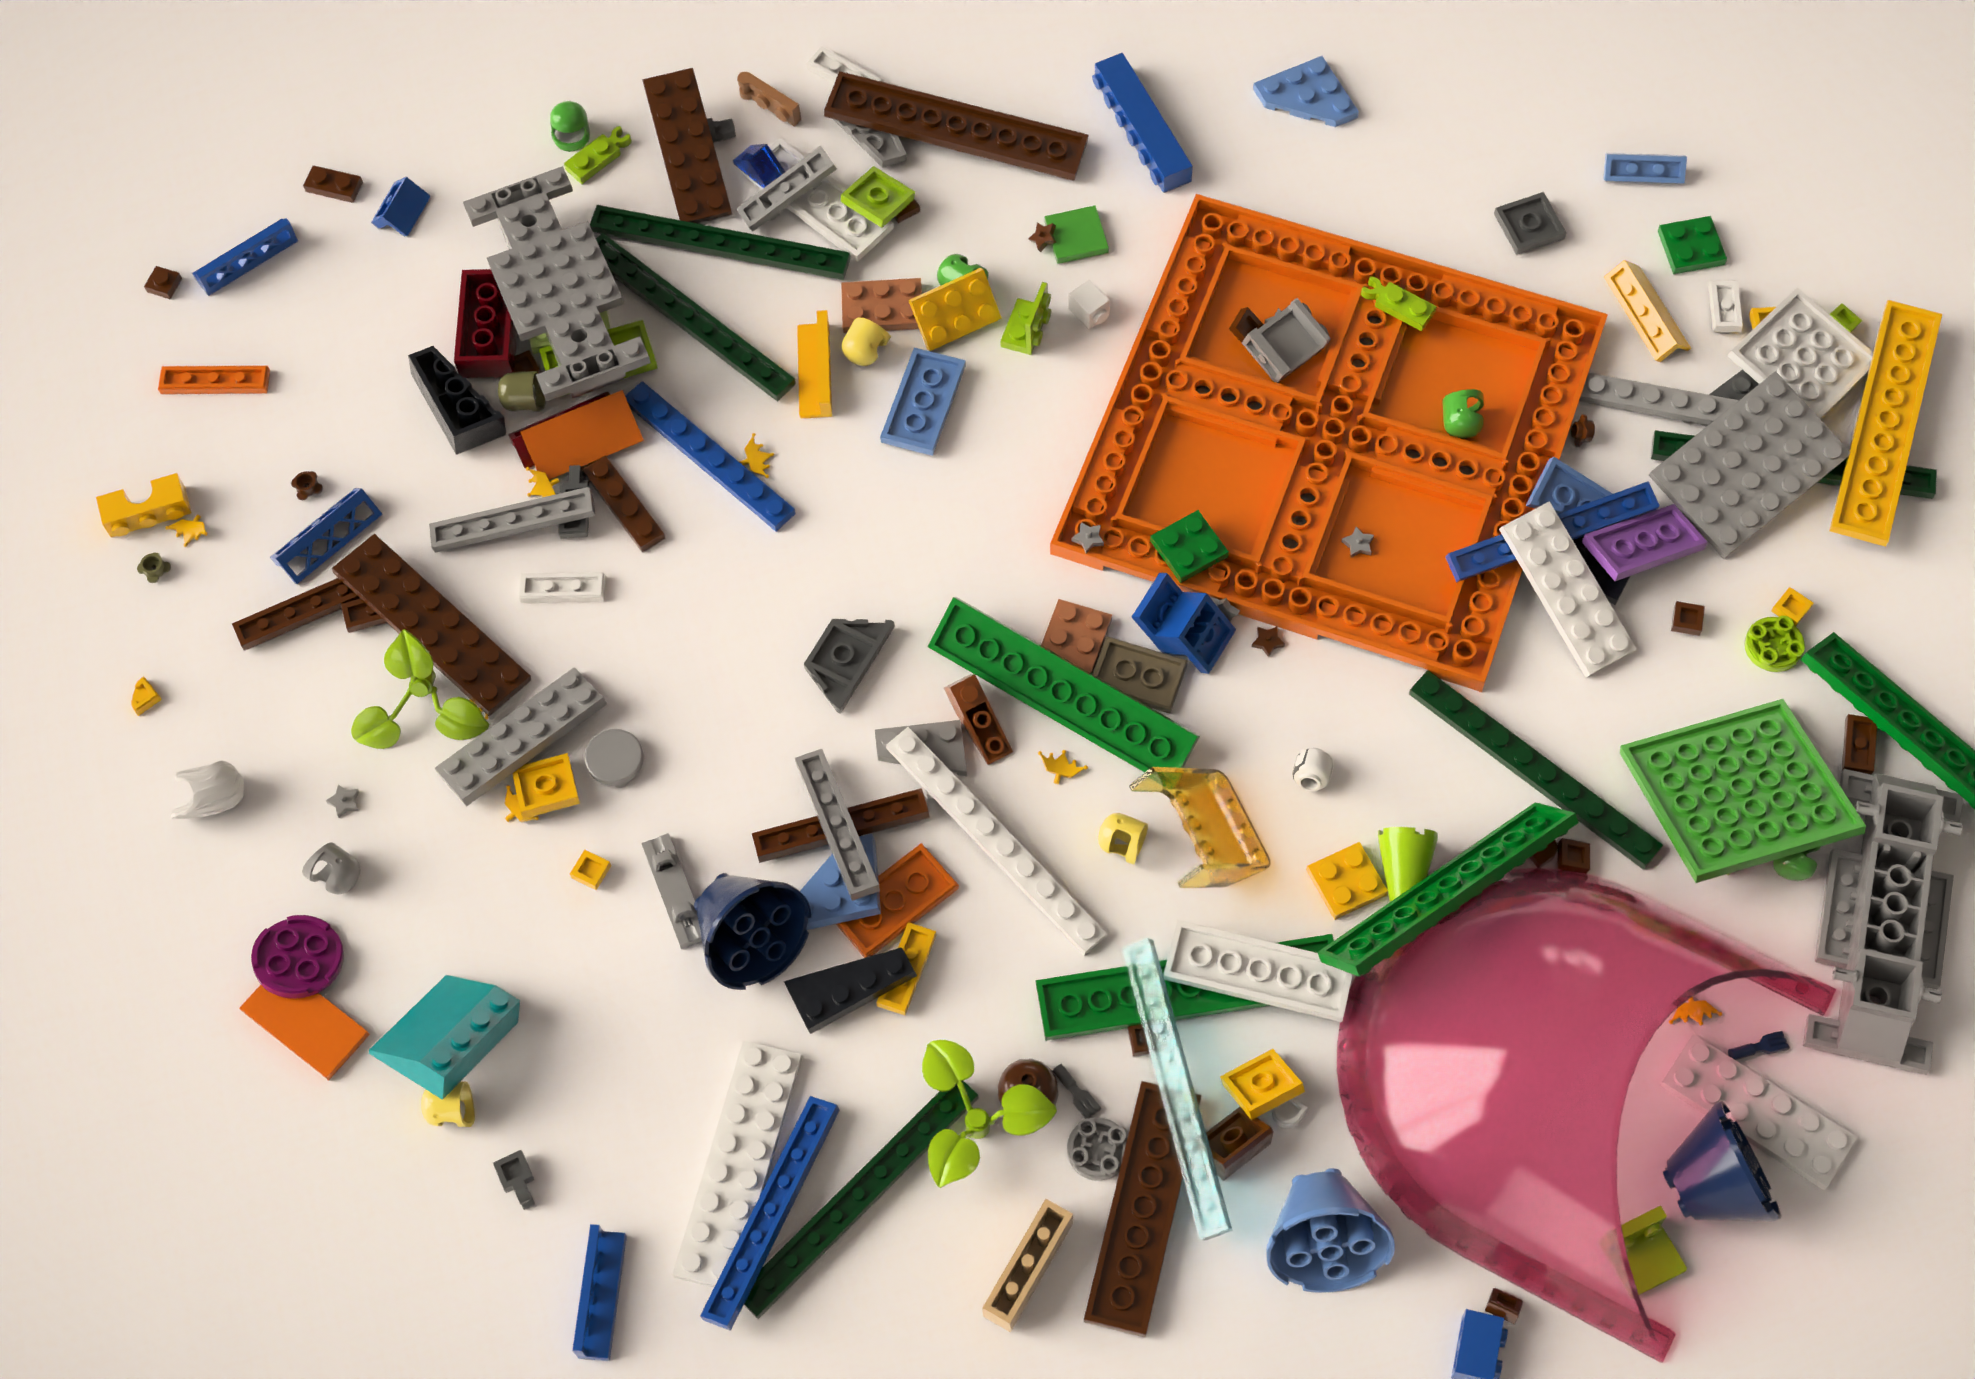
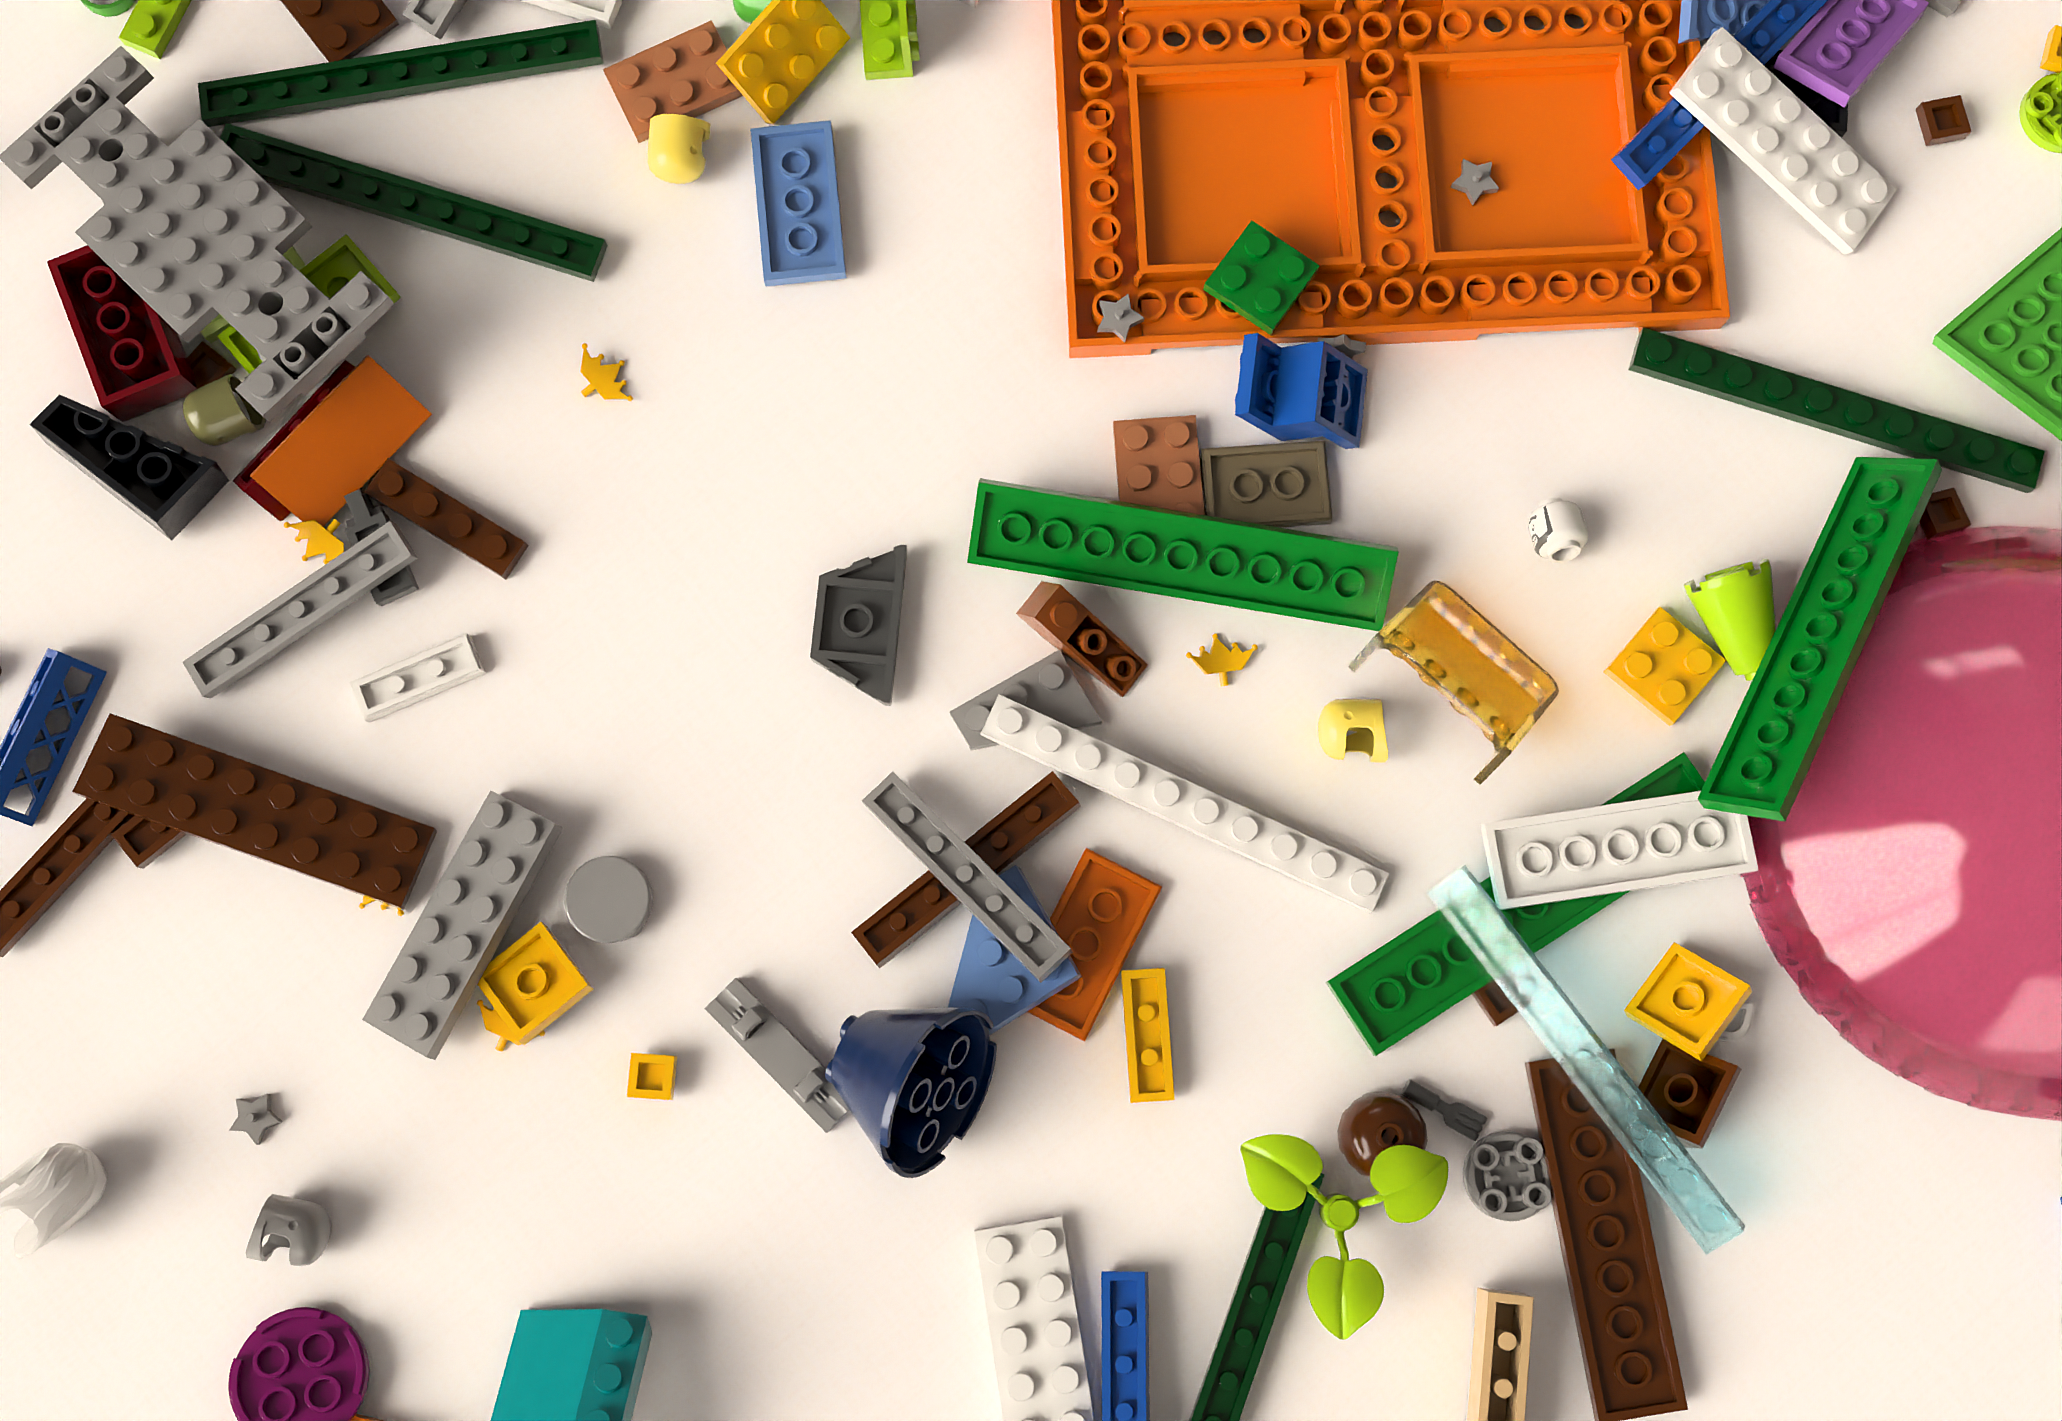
camera: 25 degrees left, 15 degrees up
(409, 658) = (251, 895): lime plant -> none
(709, 456) = (534, 400): blue plate -> none
(814, 368) = (623, 211): yellow panel -> none
(846, 987) = (1077, 1102): black wing -> none
(1268, 640) = (1414, 367): reddish brown piece -> none
(1327, 1236) = (1868, 1172): medium blue cone -> none

